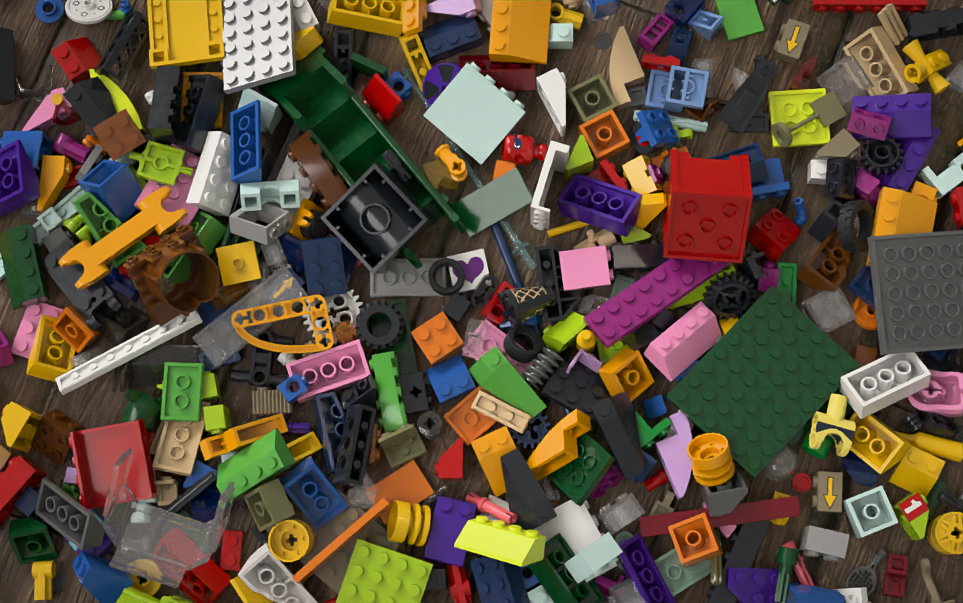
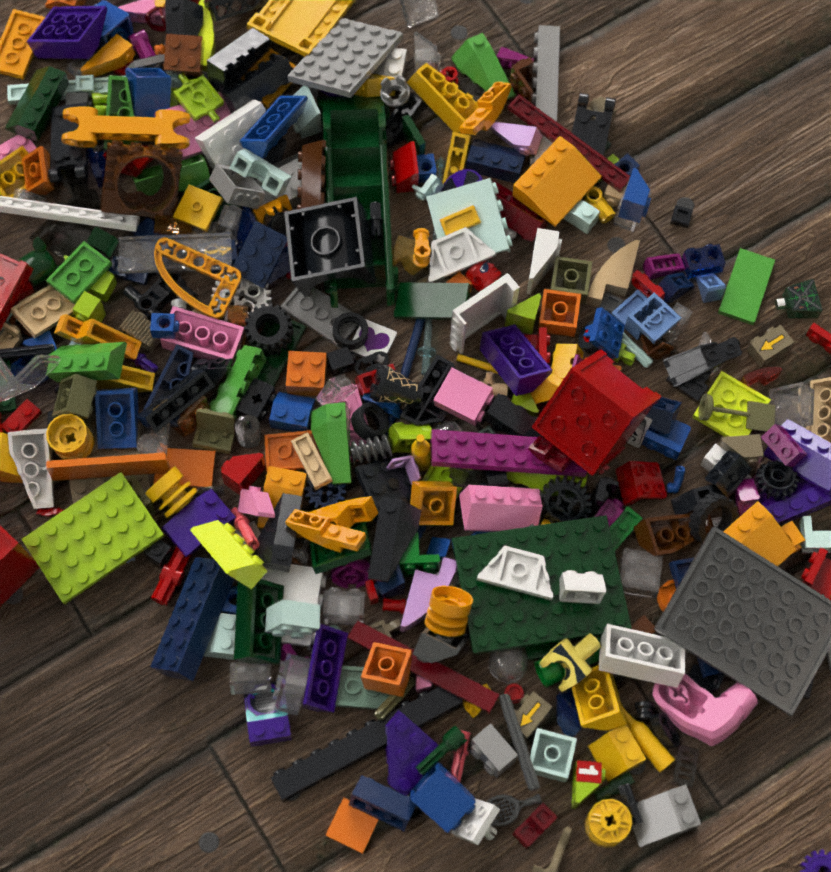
camera: 25 degrees right, 10 degrees down
(181, 349) = (102, 240): none -> dark green bracket
(324, 29) = (390, 85): none -> light grey piece
(417, 104) = (431, 186): none -> light aqua bracket
(468, 117) = (465, 218): none -> yellow tile
(485, 147) = (456, 253): none -> white wing
(485, 482) = (255, 502): none -> bright pink slope
(562, 468) = (320, 531): none -> light orange slope
(630, 484) = (371, 592): none -> red tile
(693, 269) = (549, 454): none -> dark red slope
(742, 386) = (518, 572): none -> white wing
(801, 362) = (581, 587): none -> white slope
(840, 522) = (519, 742): none -> dark grey axle

